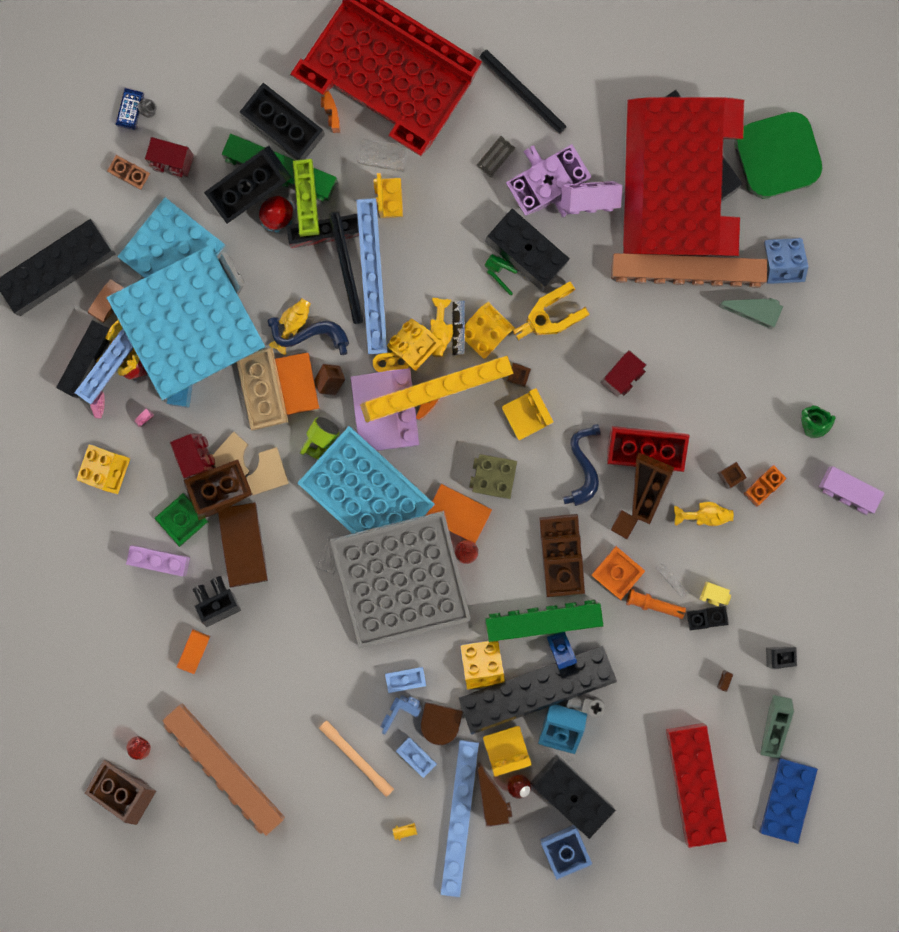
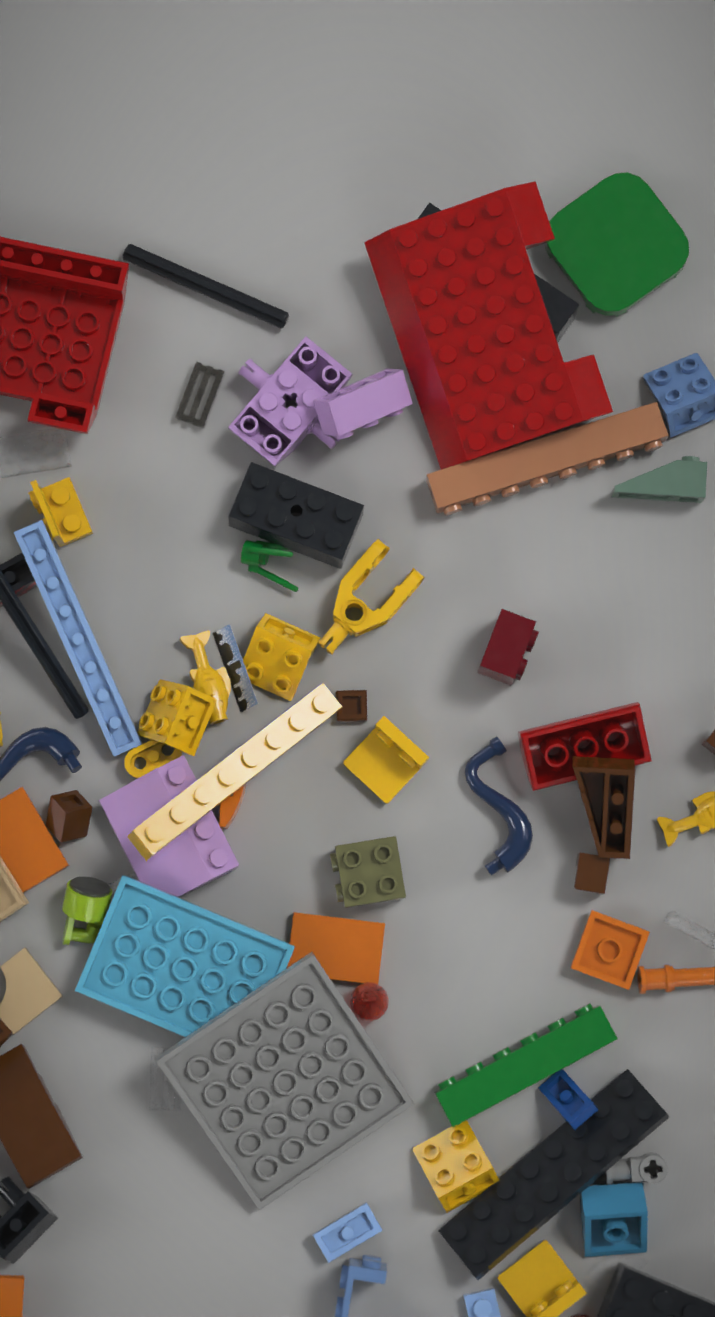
camera: 20 degrees left, 5 degrees down
(440, 723) = (425, 1280): reddish brown tile -> none
(562, 555) = (515, 954): reddish brown slope -> none

